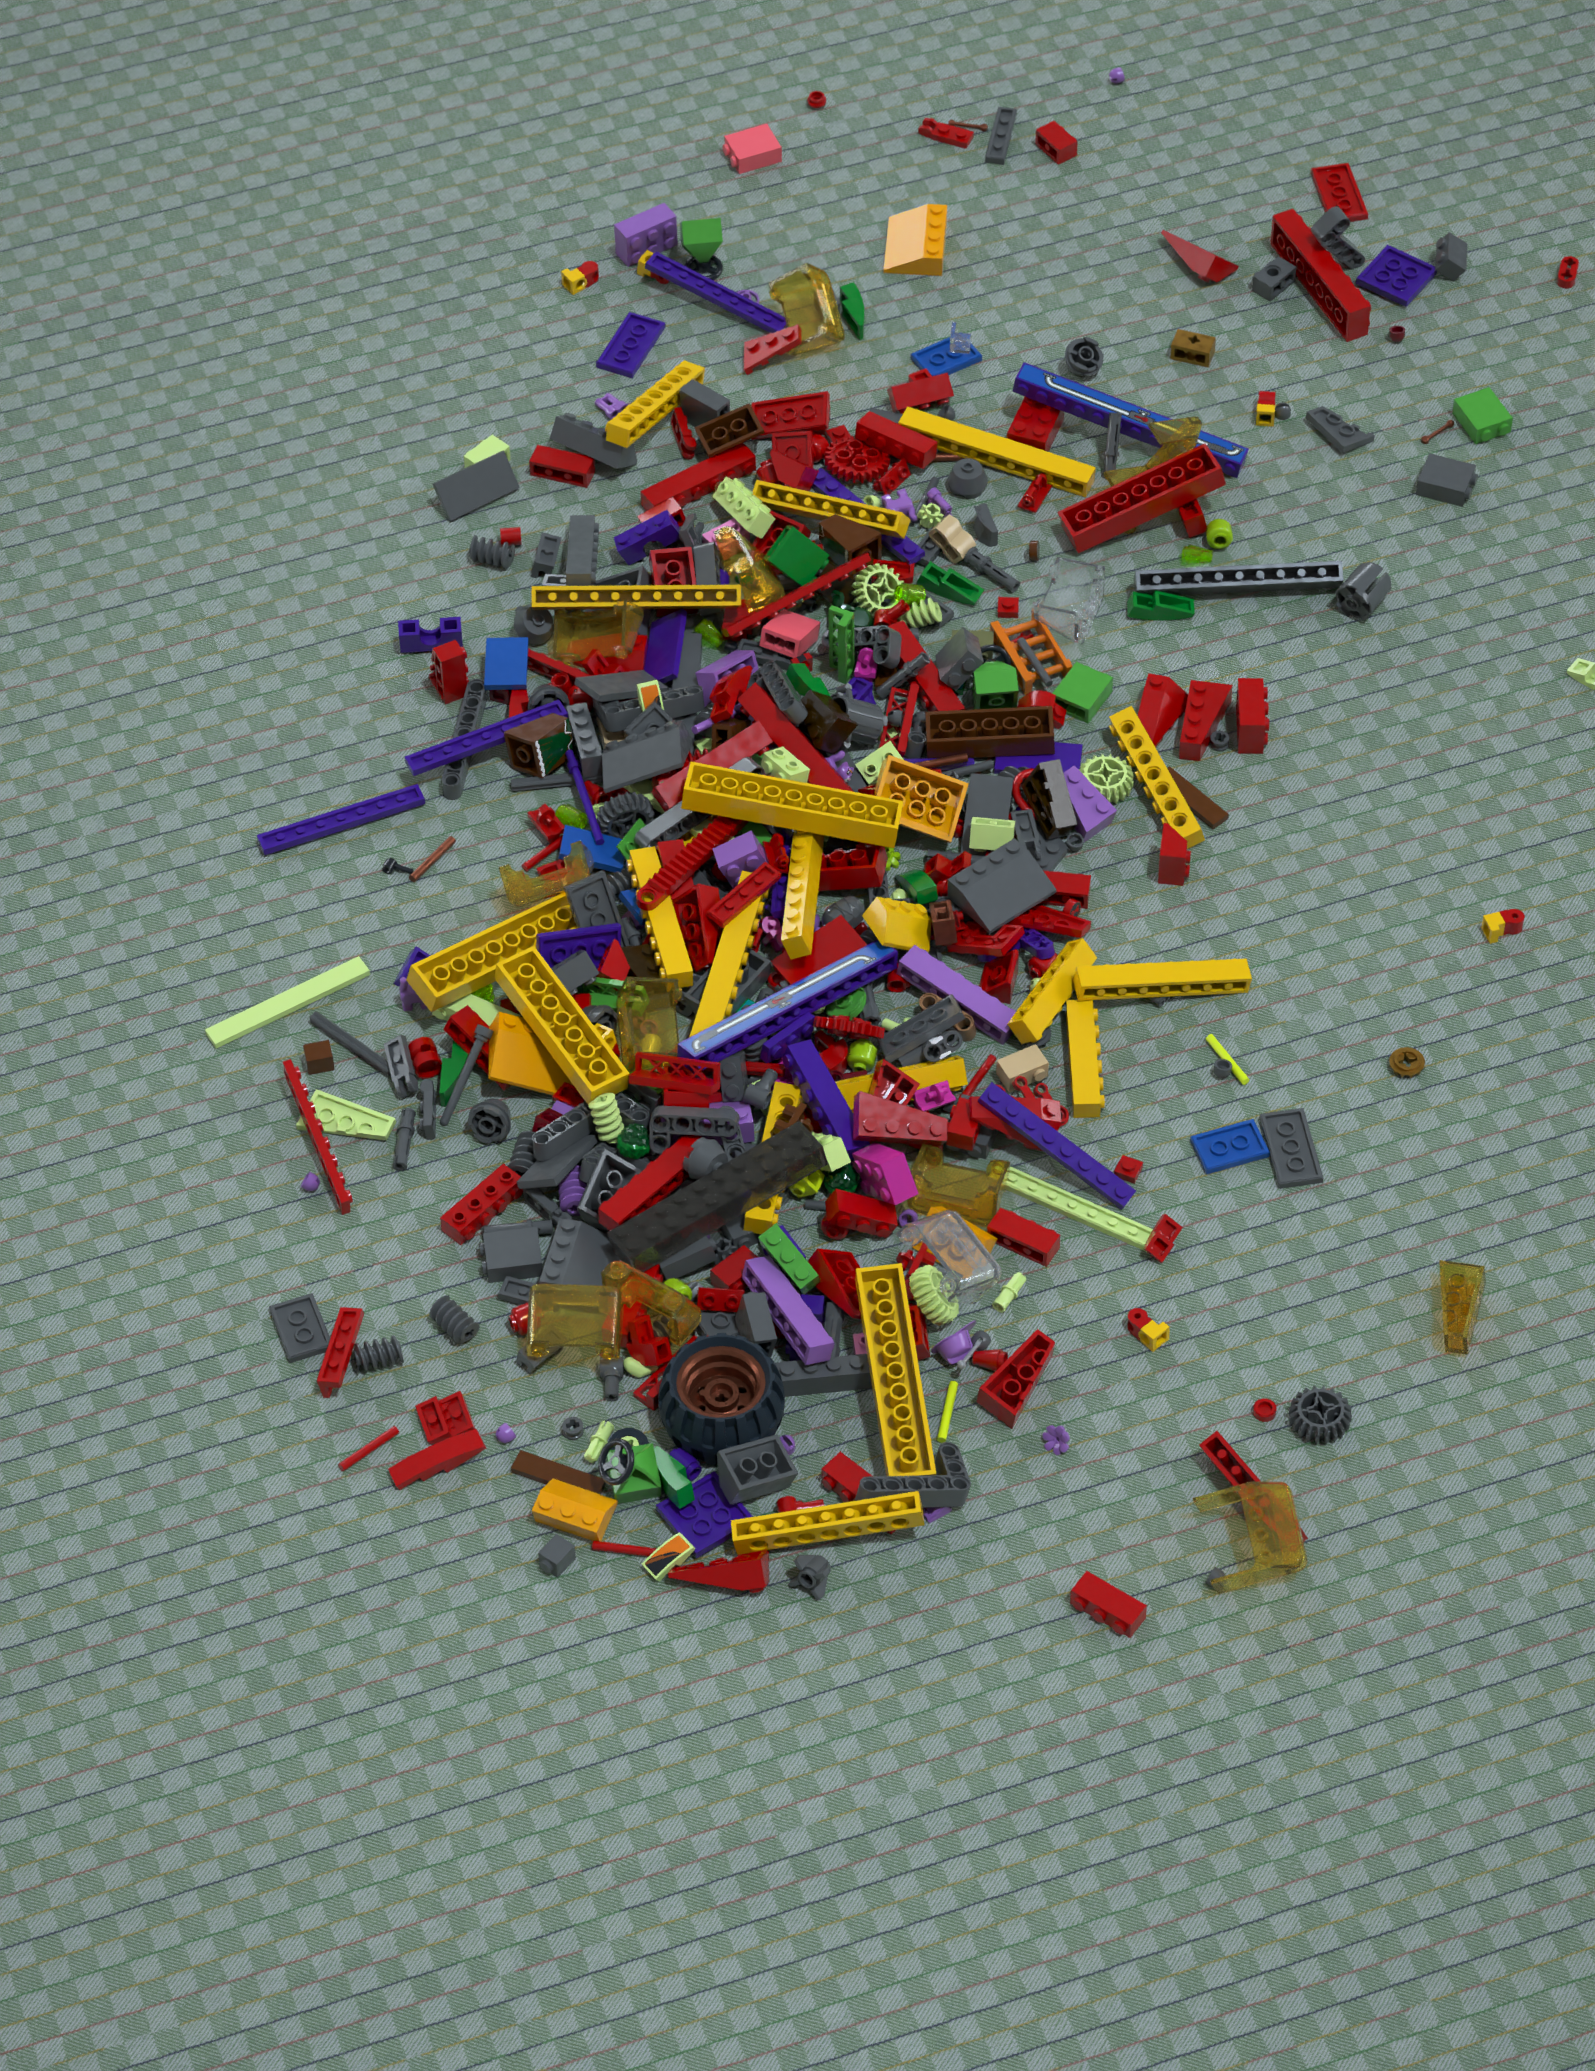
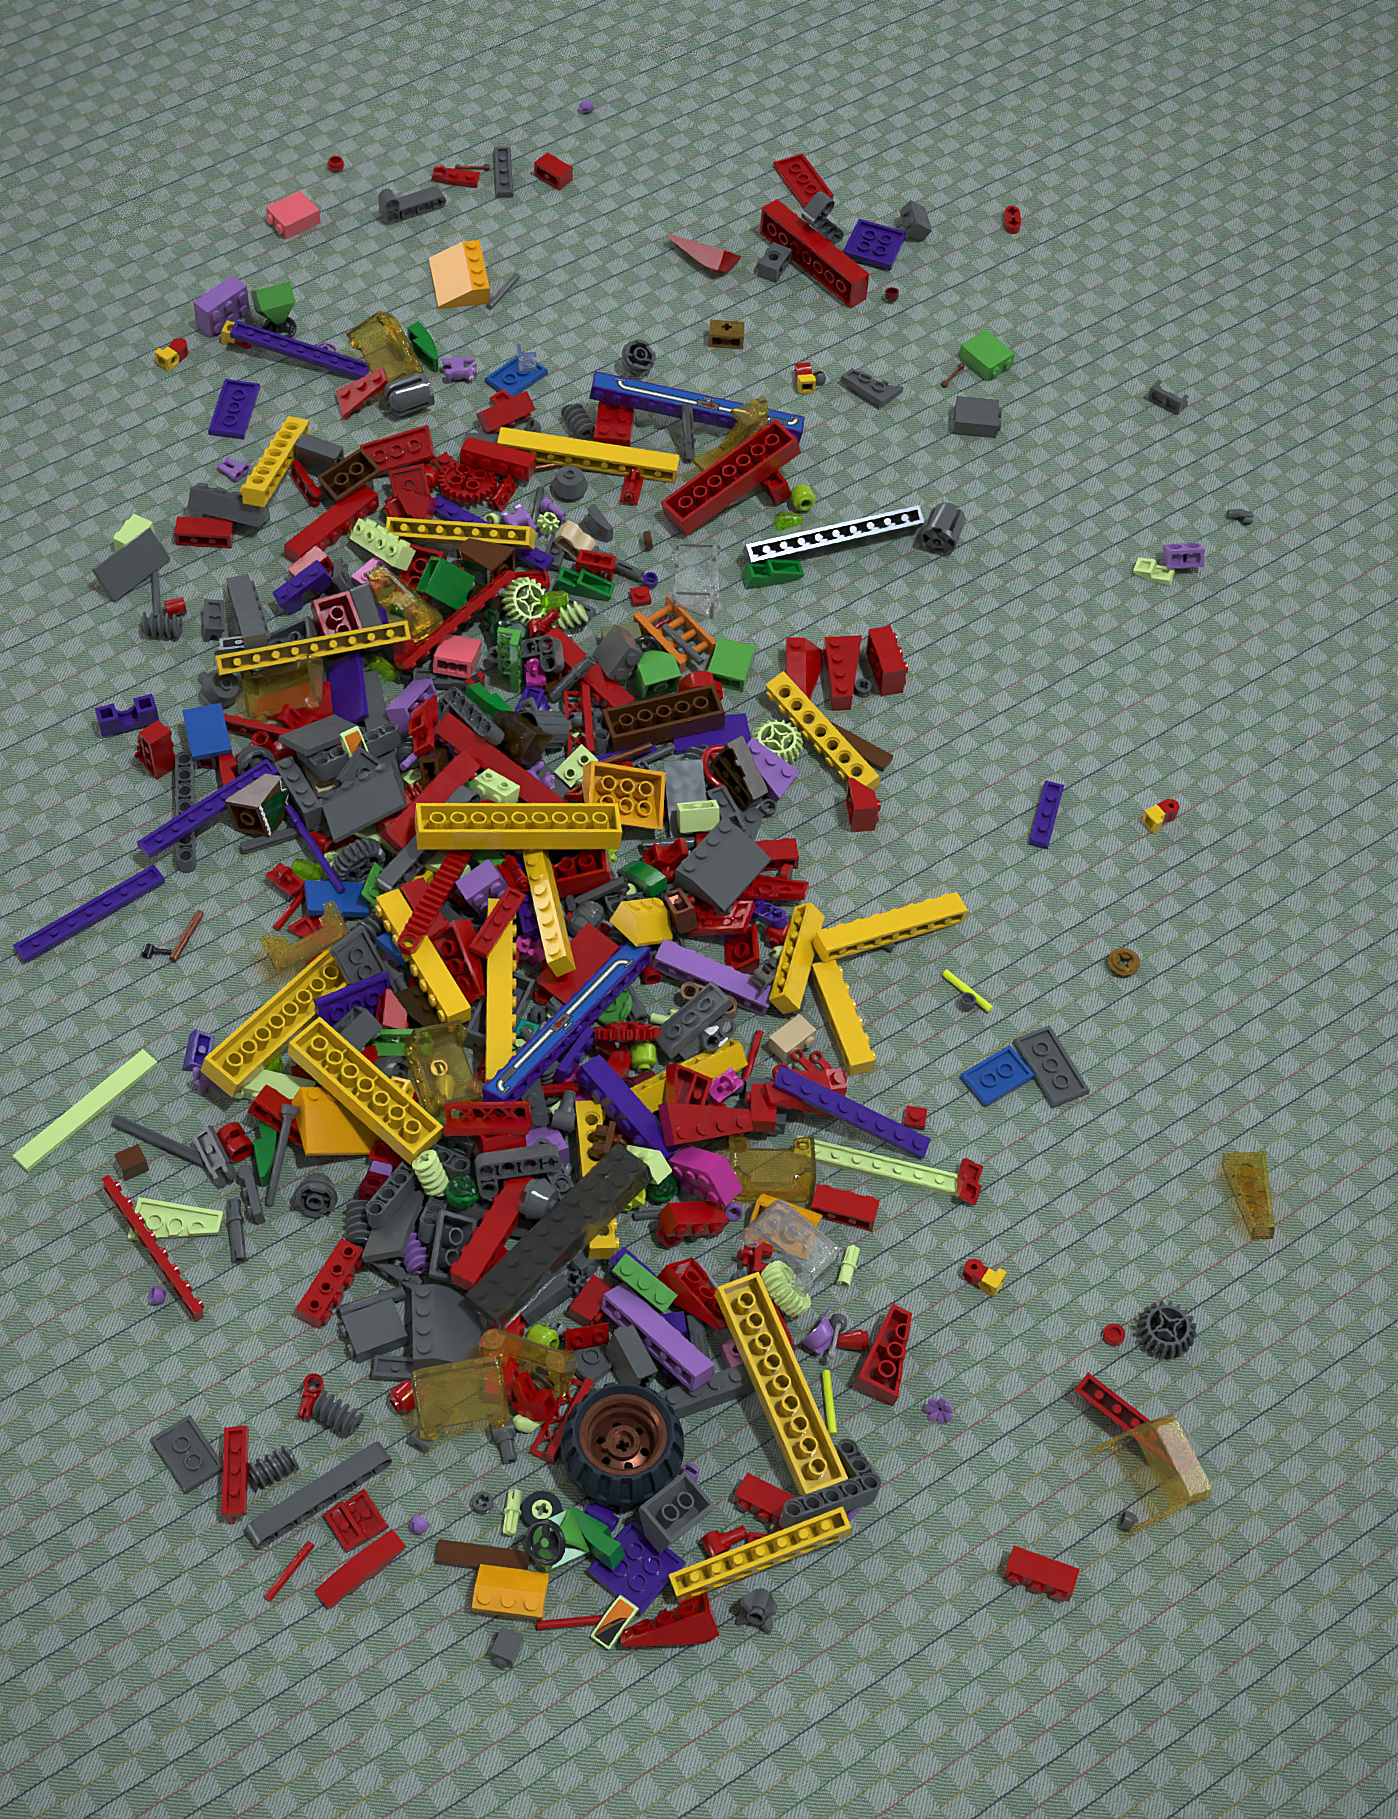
camera: 20 degrees left, 5 degrees up
(415, 1387) = (318, 1495): none -> dark grey beam
(436, 1289) = (310, 1396): none -> red pin
(495, 519) = (156, 593): none -> dark grey bar
(819, 357) = (408, 394): none -> dark grey cylinder
(881, 339) = (455, 368): none -> medium lavender animal
(884, 157) = (410, 205): none -> dark grey beam
(887, 886) = (617, 885): none -> dark grey piece
(960, 264) = (502, 291): none -> dark grey bar
(968, 565) = (597, 564): none -> red brick
(997, 414) = (578, 421): none -> dark grey piece
(1007, 1004) = (761, 978): none -> dark grey piece
(1025, 589) = (651, 577): none -> dark purple hinge
(1376, 903) = (1046, 815): none -> dark purple tile

